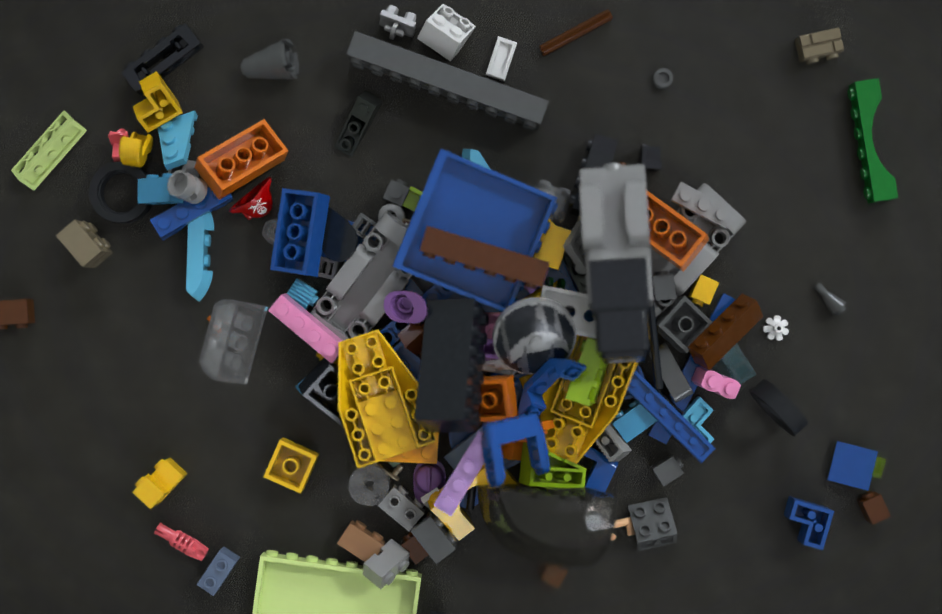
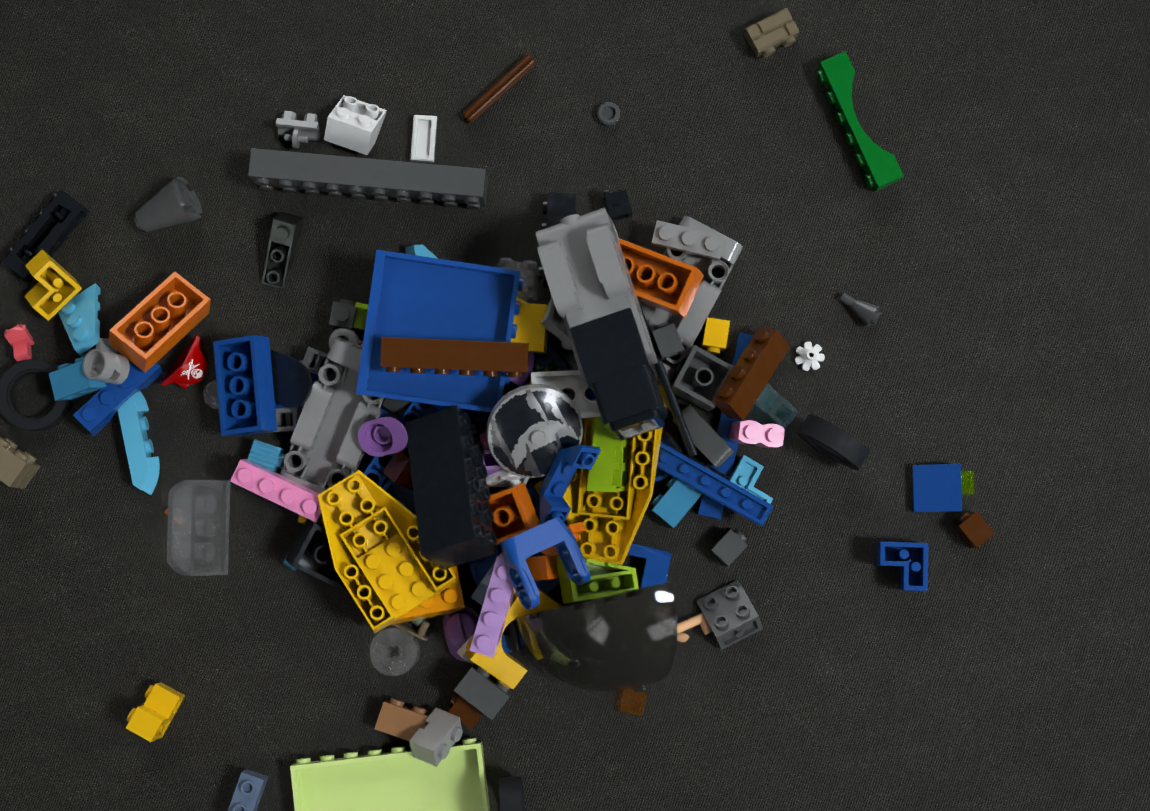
camera: 15 degrees left, 5 degrees down
(134, 149) = (38, 342): yellow animal -> none
(182, 542) = (197, 775): coral hinge -> none
(291, 465) = (300, 653): yellow brick -> none
(402, 507) = (439, 669): light grey brick -> none
(613, 444) = (658, 533): light grey brick -> none

